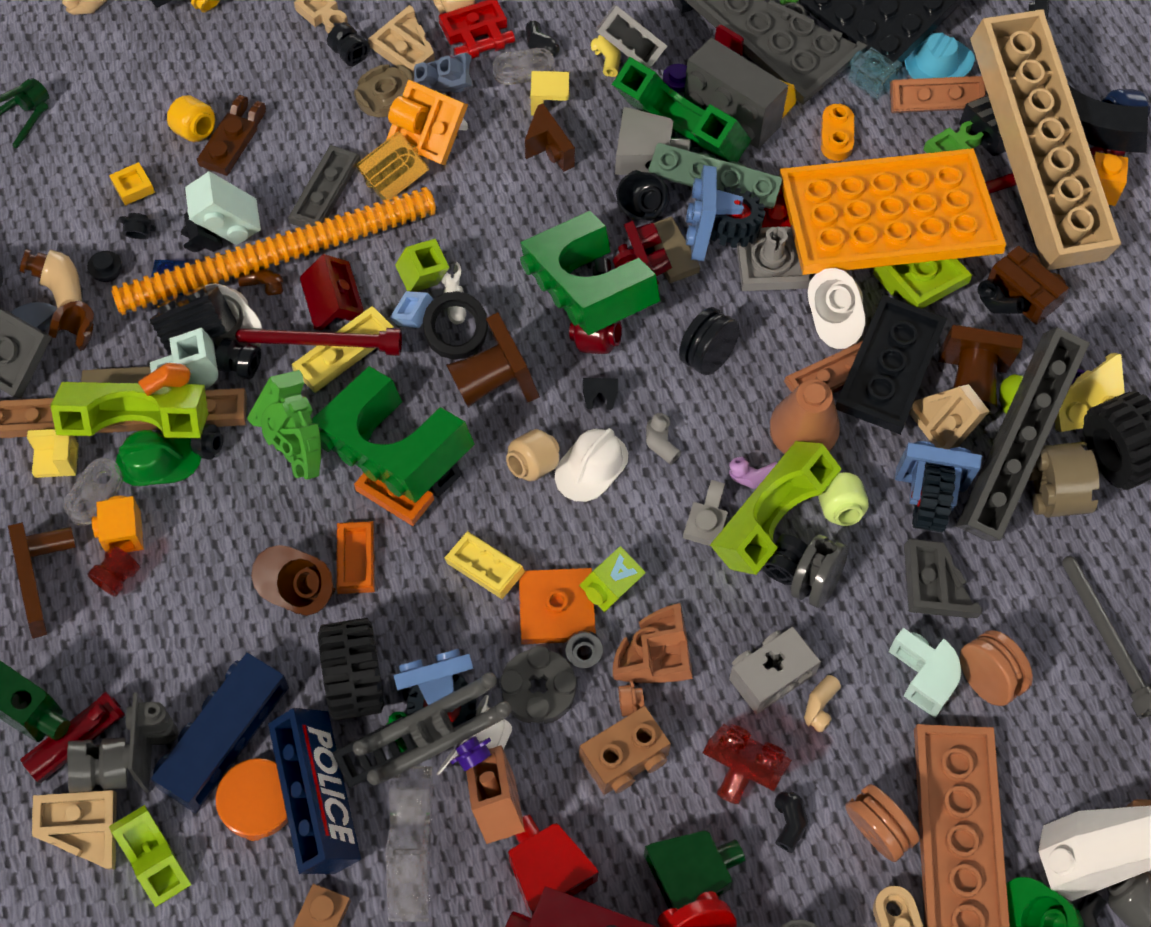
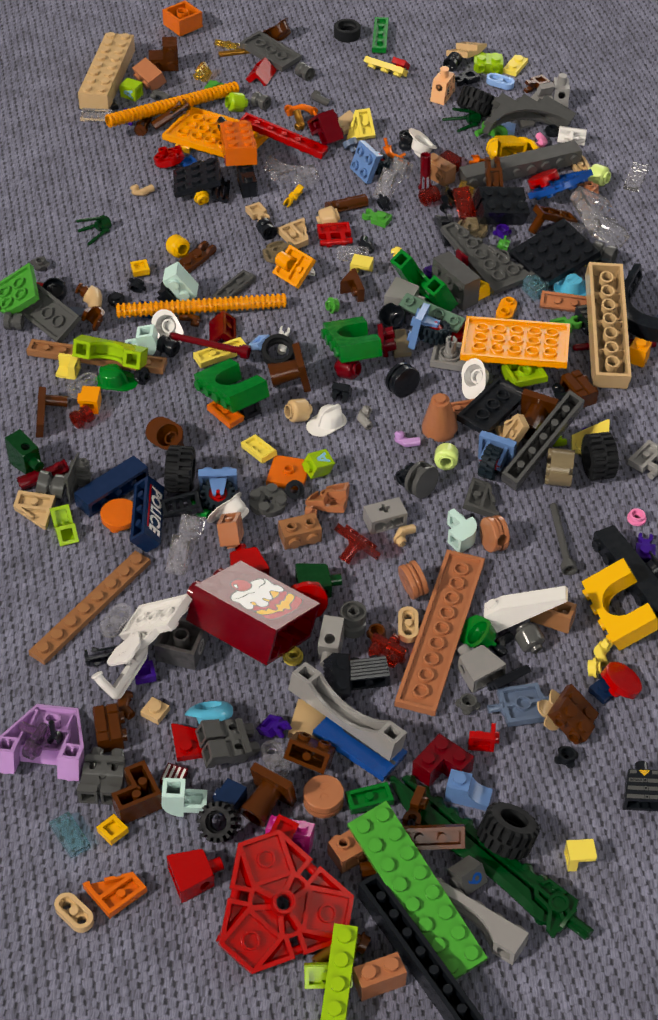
camera: 15 degrees right, 15 degrees down
(165, 376) = (131, 338): orange arm -> none
(200, 309) = (157, 317): black brick -> none
(288, 424) = (181, 372): bright green piece -> none
(355, 557) = (198, 434): orange tile -> none
(392, 166) = (271, 283): clear yellow piece -> none
(422, 265) = (270, 323): lime brick -> none
(432, 729) = (210, 494): dark grey piece -> none
(445, 74) = (311, 247): sand blue hips -> none
(471, 753) = (224, 507): dark purple plate -> none
(522, 191) = (332, 305): none -> bright green plate
(630, 37) = (408, 244): light grey brick -> none
(707, 520) = (376, 454): light grey plate -> none
(796, 819) = (373, 575): black arm -> none
(799, 475) = (410, 449): lime arch -> none

